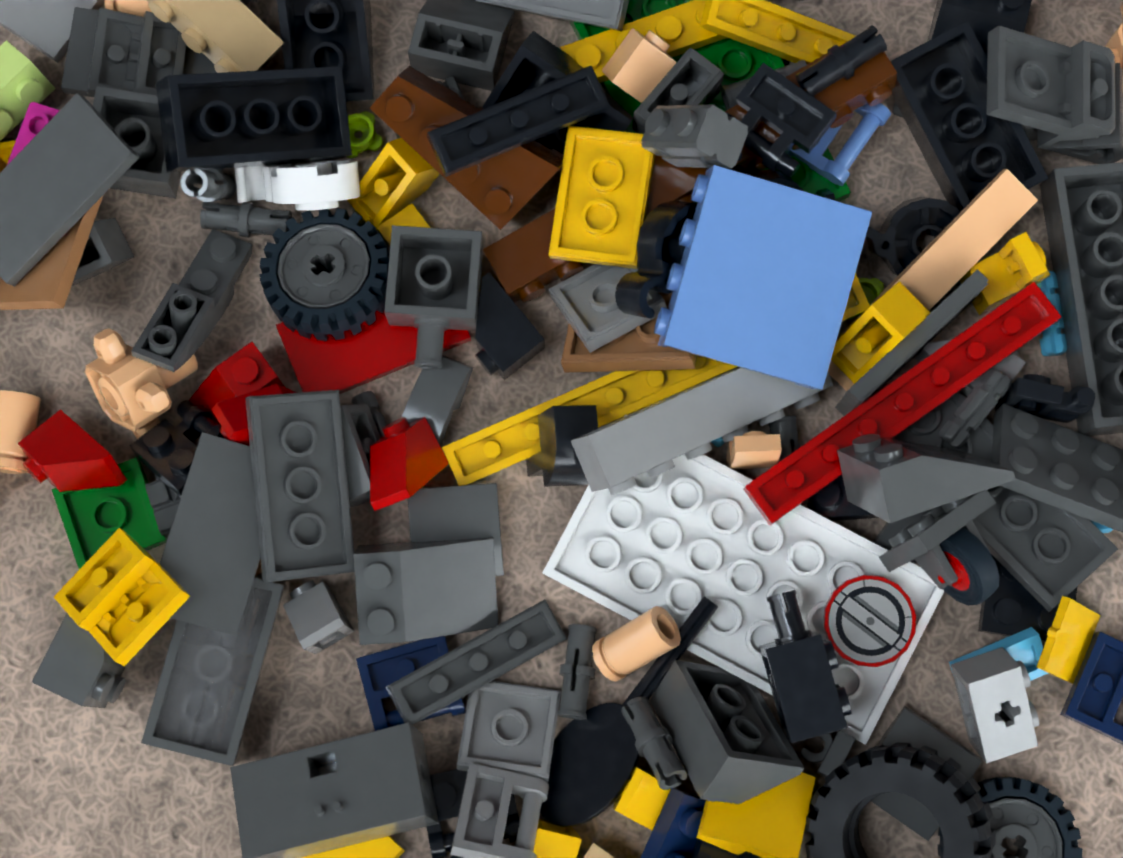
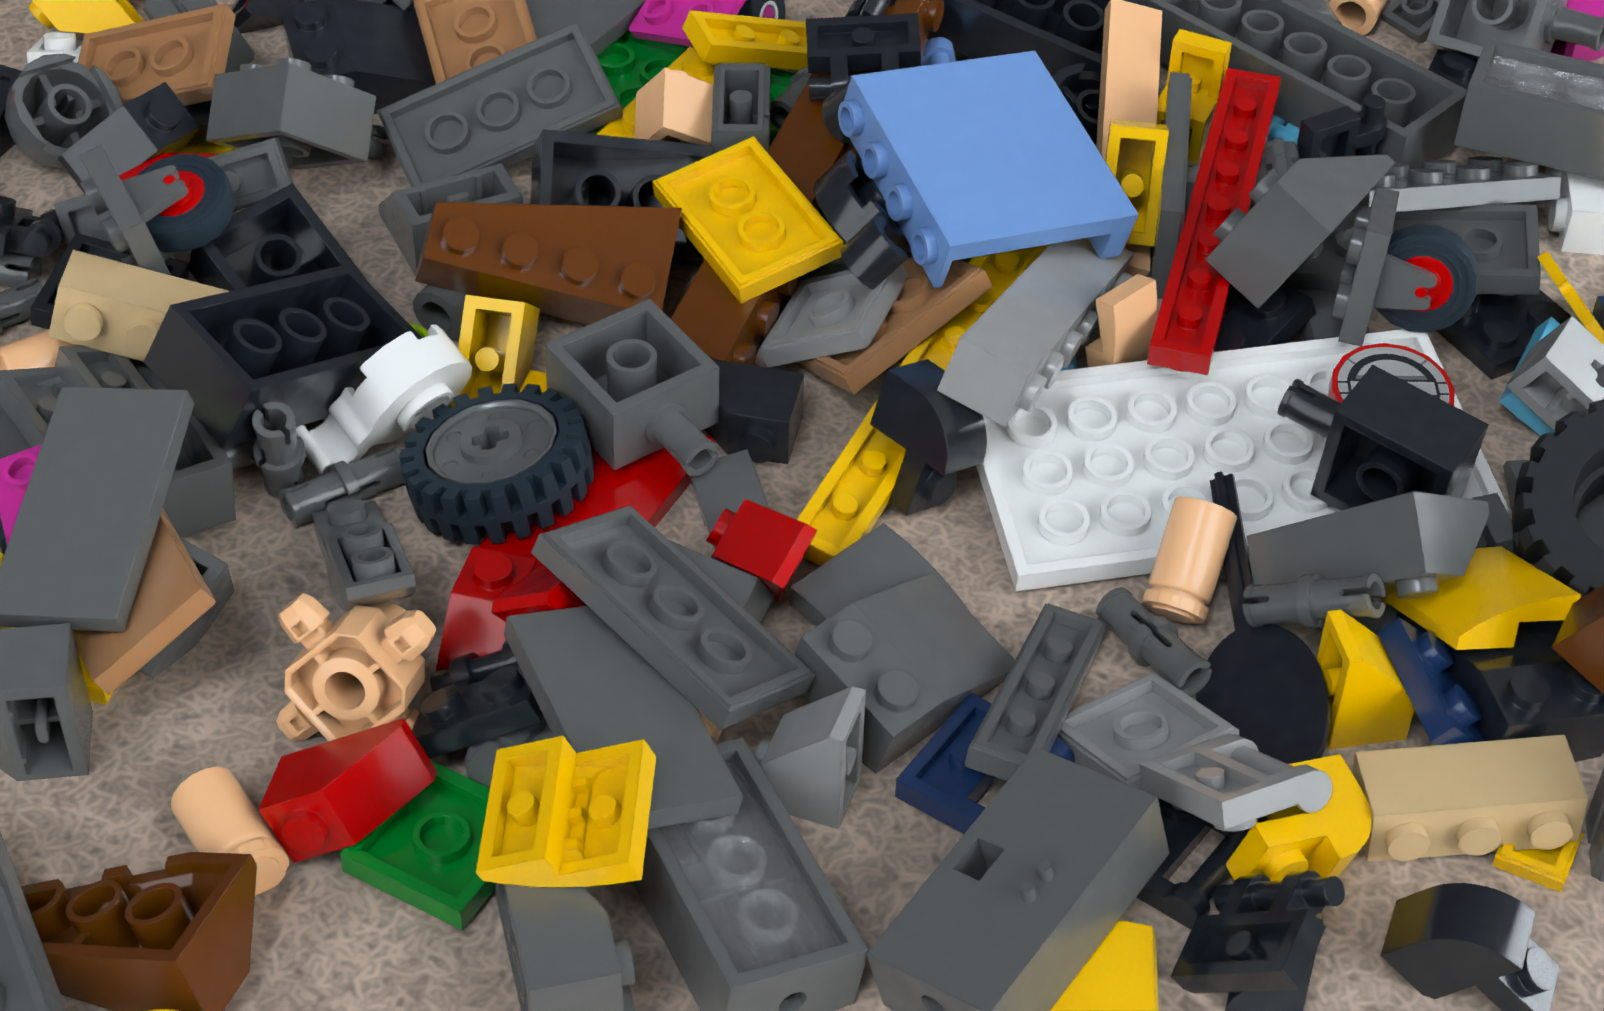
camera: 40 degrees left, 35 degrees down
(517, 121) = (600, 183): black tile -> none
(694, 136) = (800, 86): dark grey brick -> none

